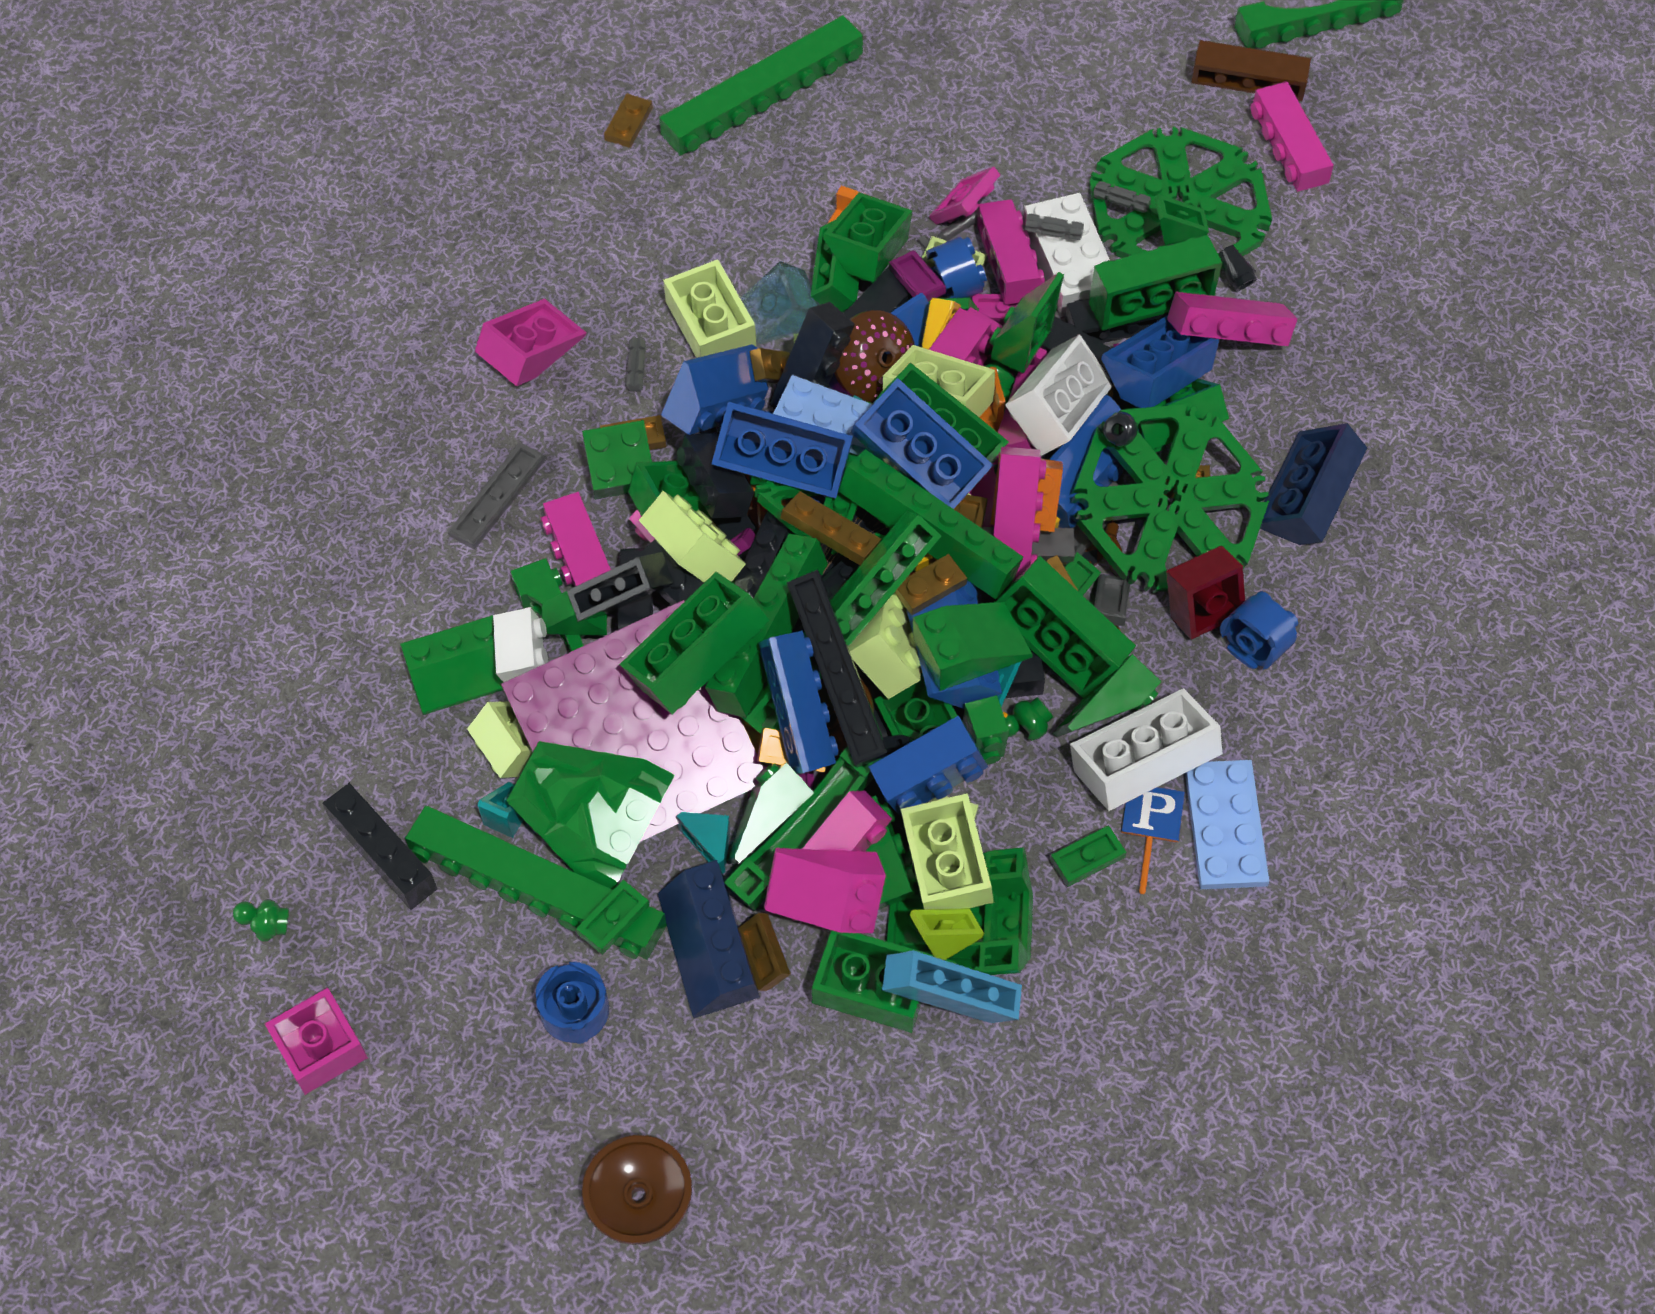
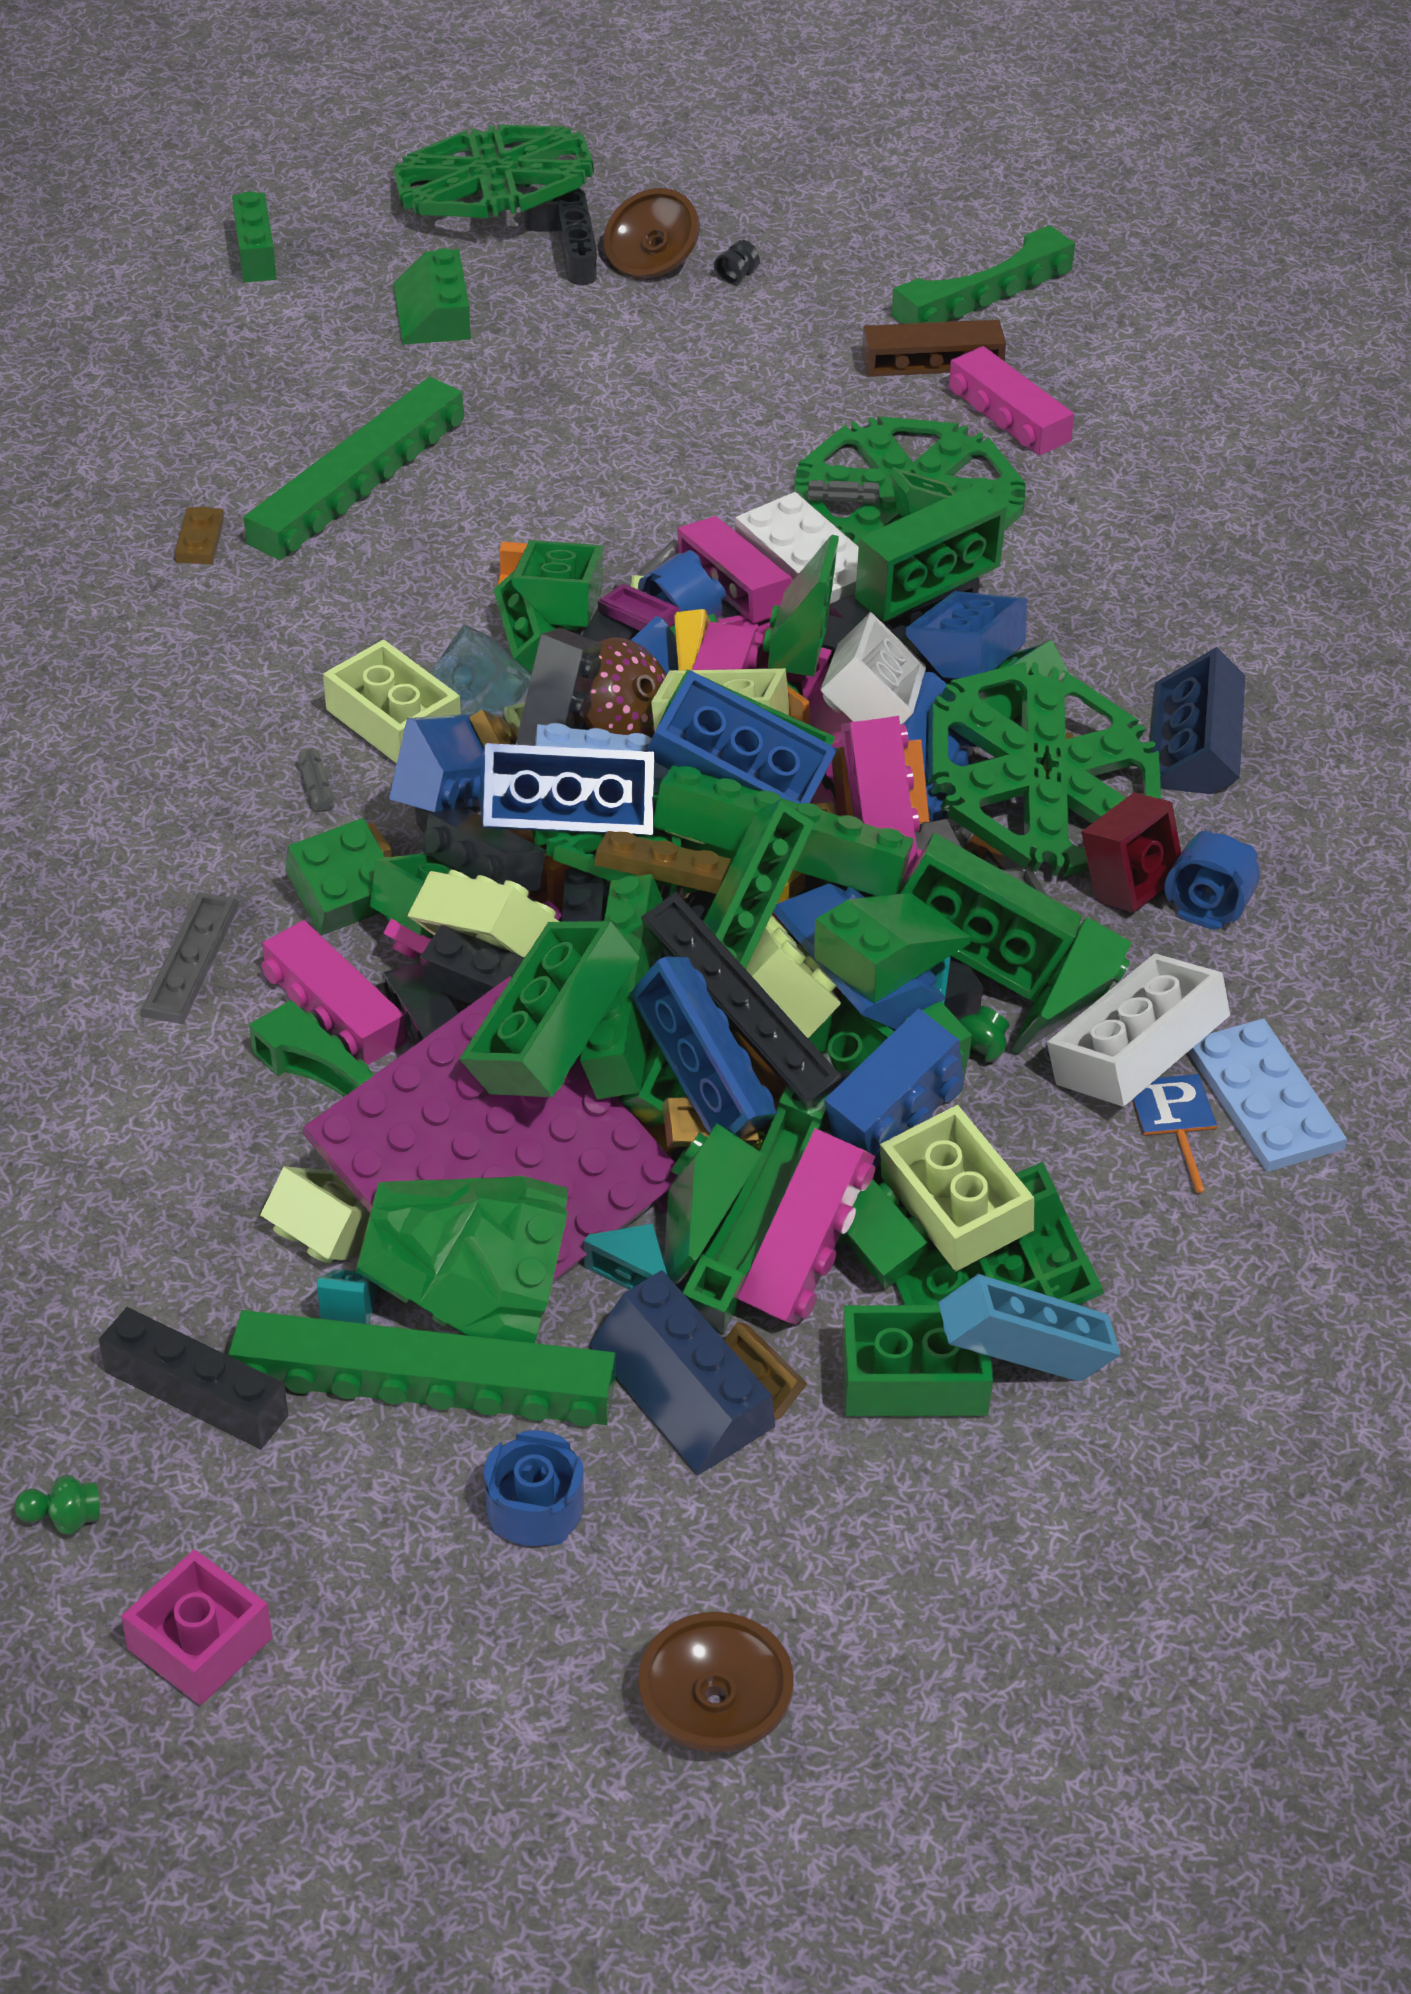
camera: 20 degrees left, 15 degrees down
(453, 665) = (216, 1148): green slope -> none
(518, 643) = (300, 1093): white slope -> none
(527, 340) = (164, 783): dark pink slope -> none
(561, 618) = (354, 1047): green slope -> none
(612, 917) = (552, 1368): green plate -> none
(620, 586) = (418, 984): black brick -> none
(827, 888) = (824, 1256): dark pink slope -> none
(931, 584) = (812, 895): pearl gold plate -> none
(947, 930) = (993, 1262): lime slope -> none
(965, 195) = (657, 525): dark pink plate -> none
(1054, 226) = (783, 525): dark grey axle -> none
(1088, 856) = (1117, 1165): green plate -> none
(1113, 429) = (957, 687): black piece -> none
(1231, 319) = (1032, 576): dark pink brick -> none
(1237, 268) = (1017, 540): black cone -> none

